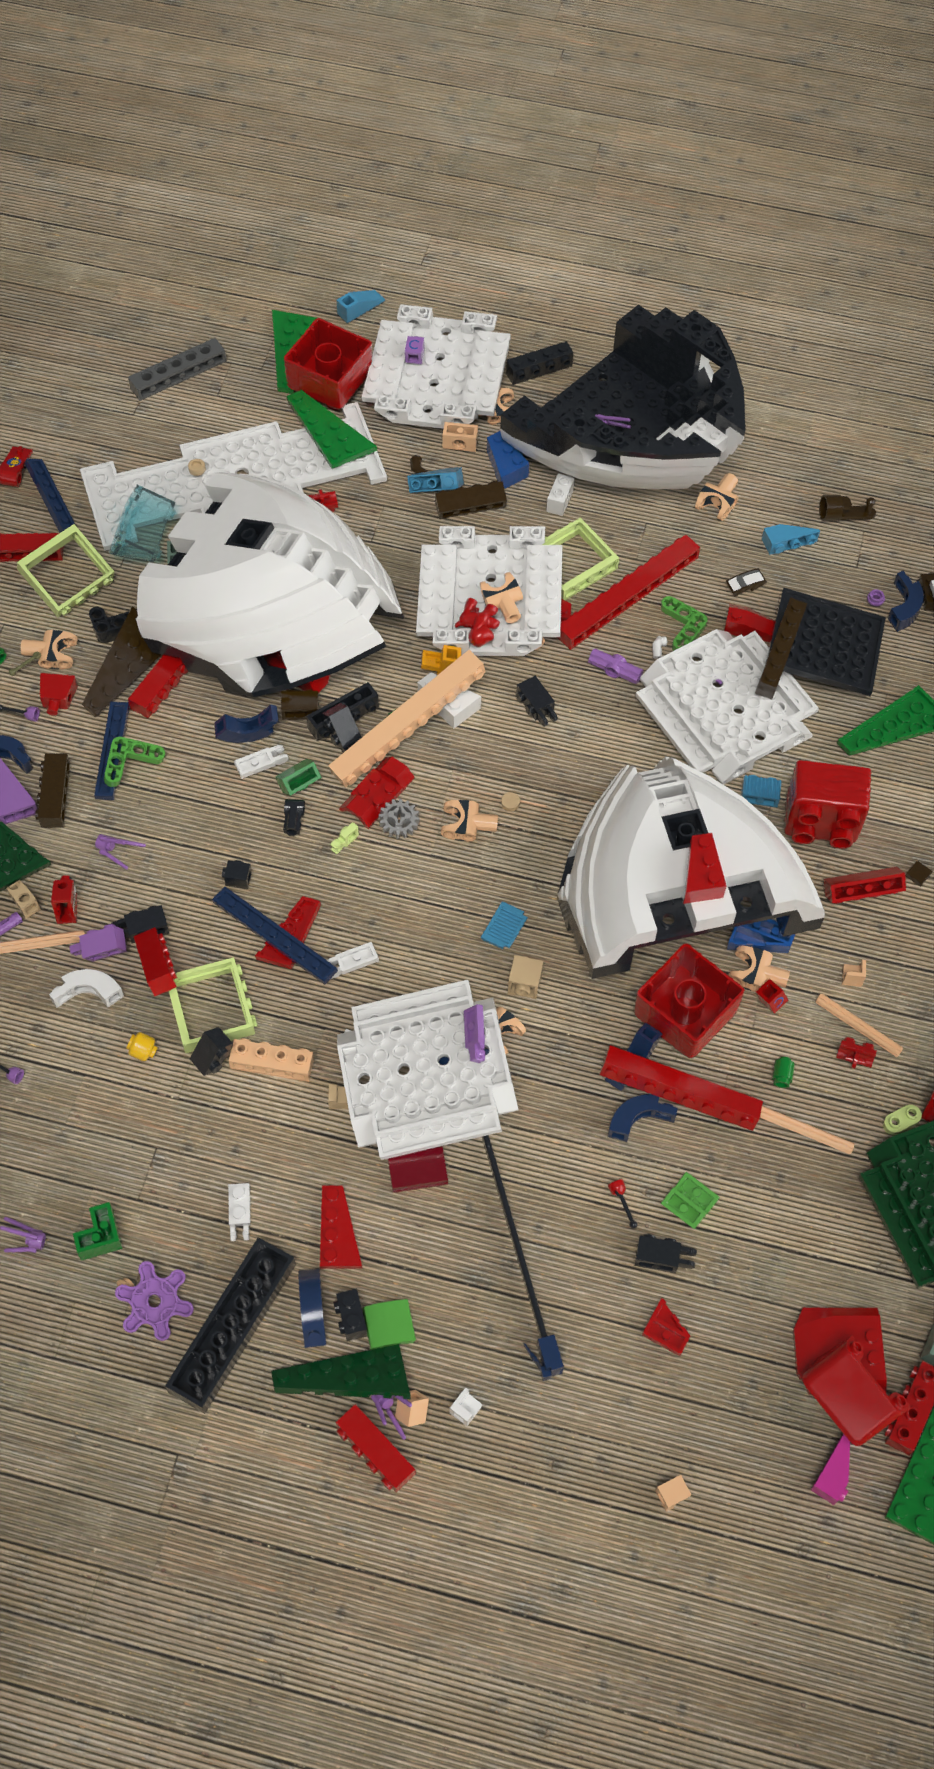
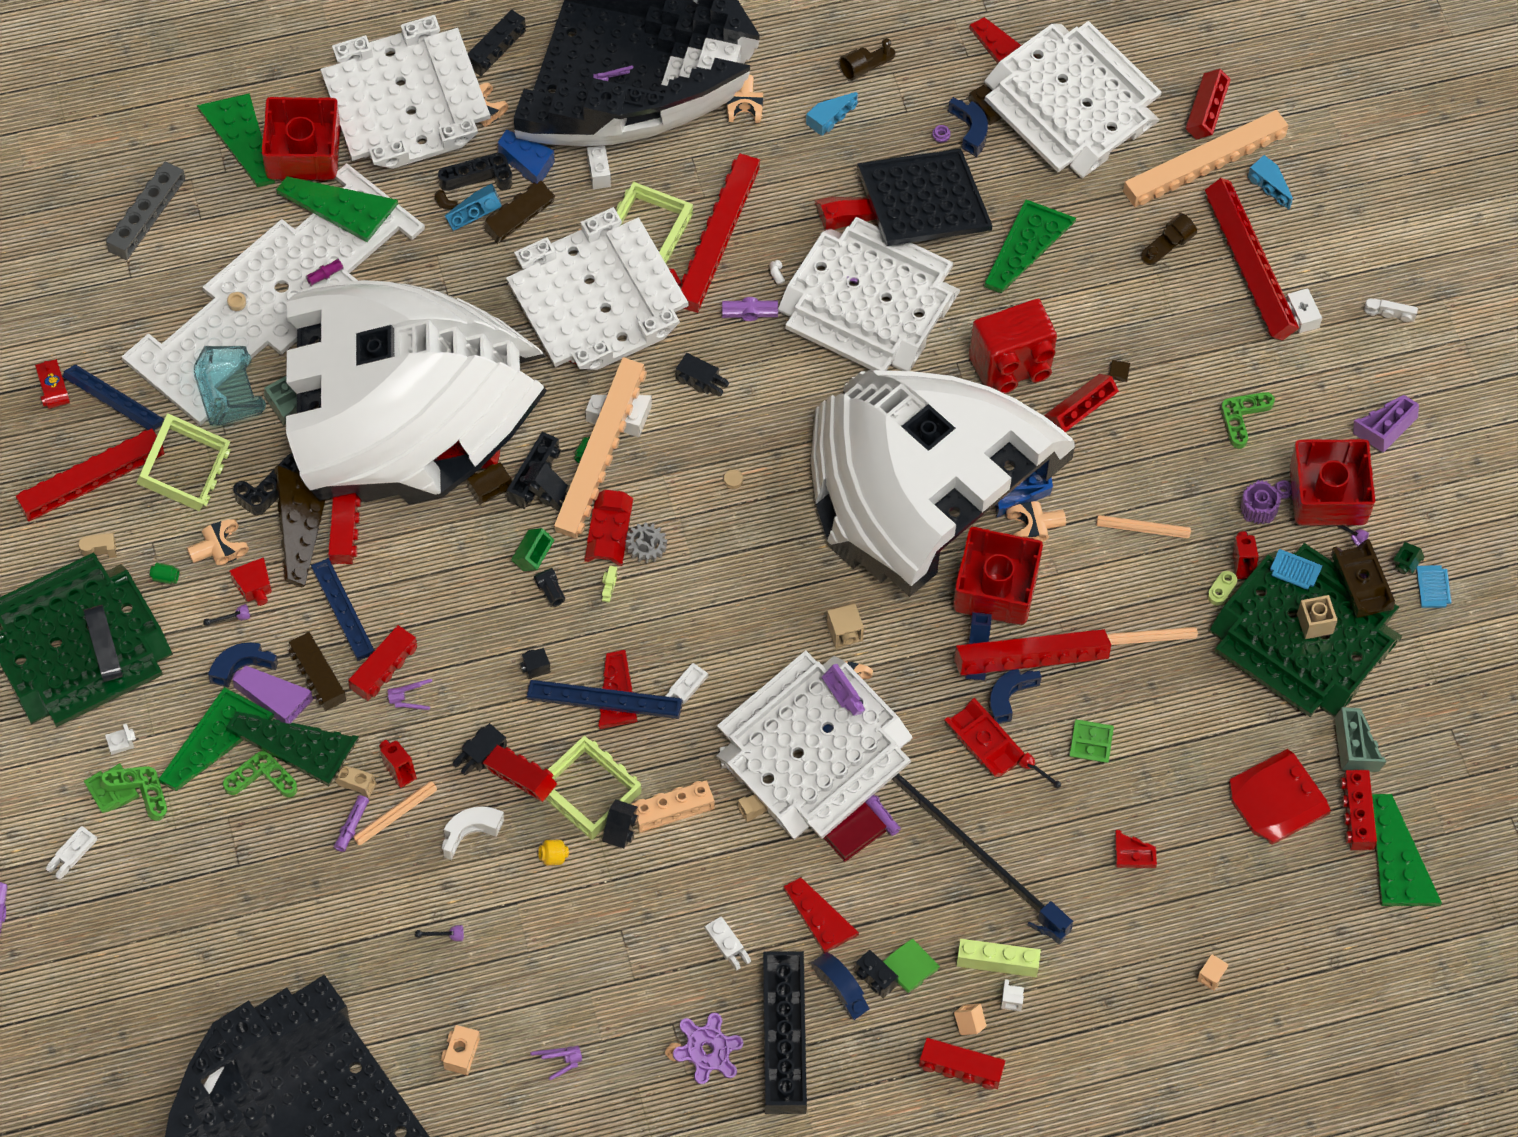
camera: 30 degrees left, 0 degrees up
(36, 655) = (212, 556): olive hinge -> none
(100, 943) = (457, 784): medium lavender hinge -> none
(102, 1237) = (629, 1020): green brick -> none
(111, 810) = (383, 663): none -> red brick
(127, 752) = (361, 603): bright green beam -> none
(246, 729) = (457, 528): dark blue arch -> none
(260, 761) = (485, 553): white hinge -> none
(282, 475) = (324, 272): none -> magenta pin
(328, 499) = (383, 273): red hips -> none
(350, 1375) = (906, 1019): dark green wing -> none
(357, 303) = (279, 61): dark azure slope -> none
(385, 1403) = (945, 1023): medium lavender plant -> none
(414, 349) = (376, 86): medium lavender brick -> none
(439, 661) = (594, 380): light orange brick -> none
(453, 1170) = (875, 804): none -> medium lavender pin
(458, 454) = (453, 178): none -> black beam
(460, 436) = (469, 149): light nougat brick -> none
(468, 821) = (708, 514): light nougat connector -> none
(474, 1362) = (998, 958): none -> yellowish green brick
(478, 622) = (611, 327): red animal -> none
(504, 597) = (616, 293): light nougat connector -> none
(504, 926) = (797, 592): dark azure window -> none
(590, 1146) = (985, 739): none -> red piece
(662, 1254) = (1095, 795): black hinge -> none
(689, 620) = (789, 234): bright green beam -> none
(704, 871) = (966, 454): red wedge -> none
(747, 580) = (817, 172): slope -> none
(761, 790) = (946, 361): dark azure brick -> none
(771, 996) = (1060, 537): red brick -> none
(781, 648) = (898, 244): dark brown arch -> none
(783, 1072) = (1105, 597): green brick -> none
(835, 1474) = (1326, 891): dark pink slope -> none
(851, 1393) = (1308, 820): red windscreen -> none
(853, 974) = (1116, 485): light nougat panel -> none
(857, 1054) = (1155, 552): red hips -> none

